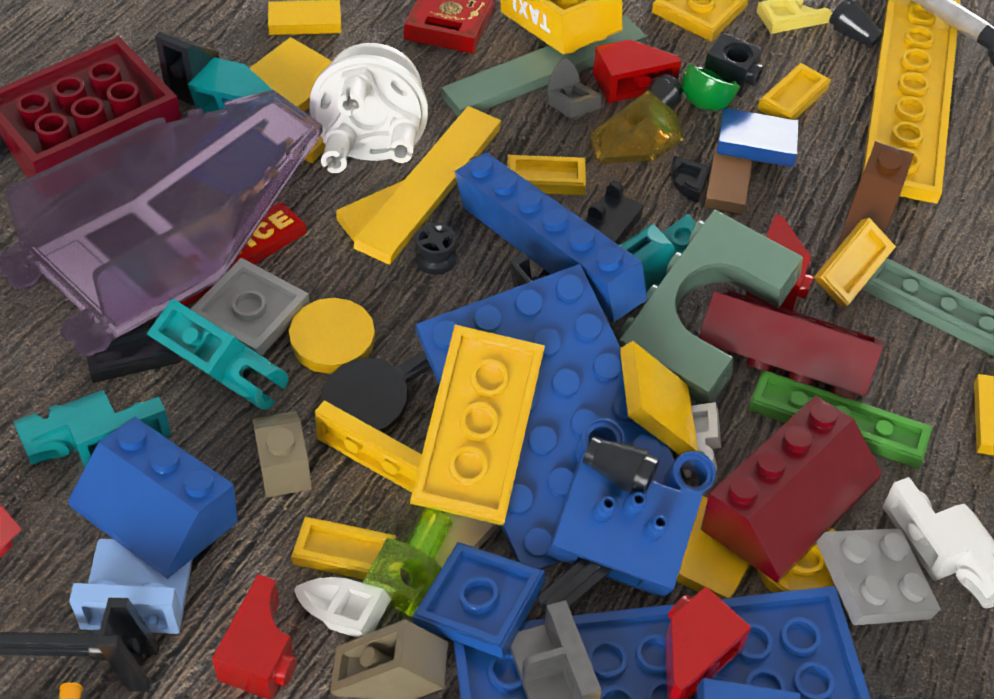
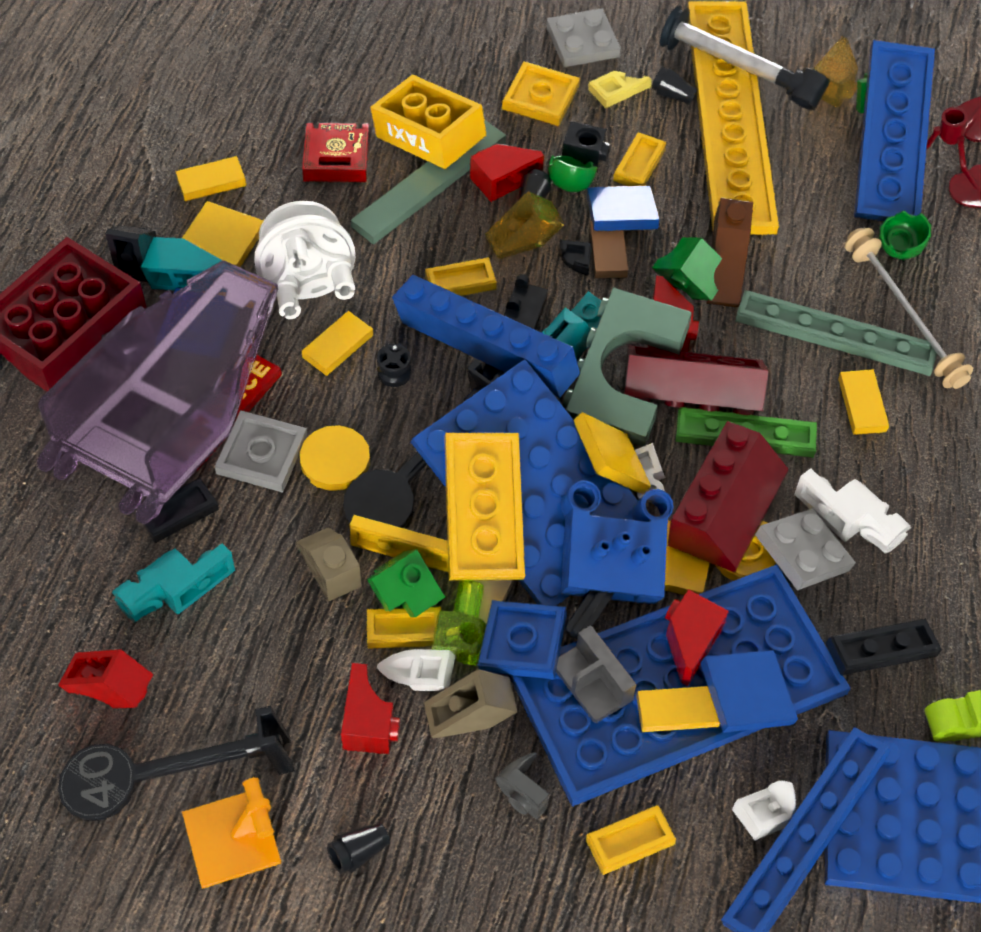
camera: 15 degrees left, 5 degrees up
(124, 575) = (254, 685): light blue bracket -> none
(154, 497) = (247, 623): blue slope -> none
(215, 352) = (251, 495): teal plate -> none
(359, 495) = (406, 583): none -> green brick
(426, 186) = (370, 311): yellow tile -> none
(568, 94) = (460, 204): dark grey plate -> none
(622, 464) = (605, 513): black cone -> none
(819, 213) = (690, 268): none -> green brick
(854, 262) = (726, 301): yellow tile -> none

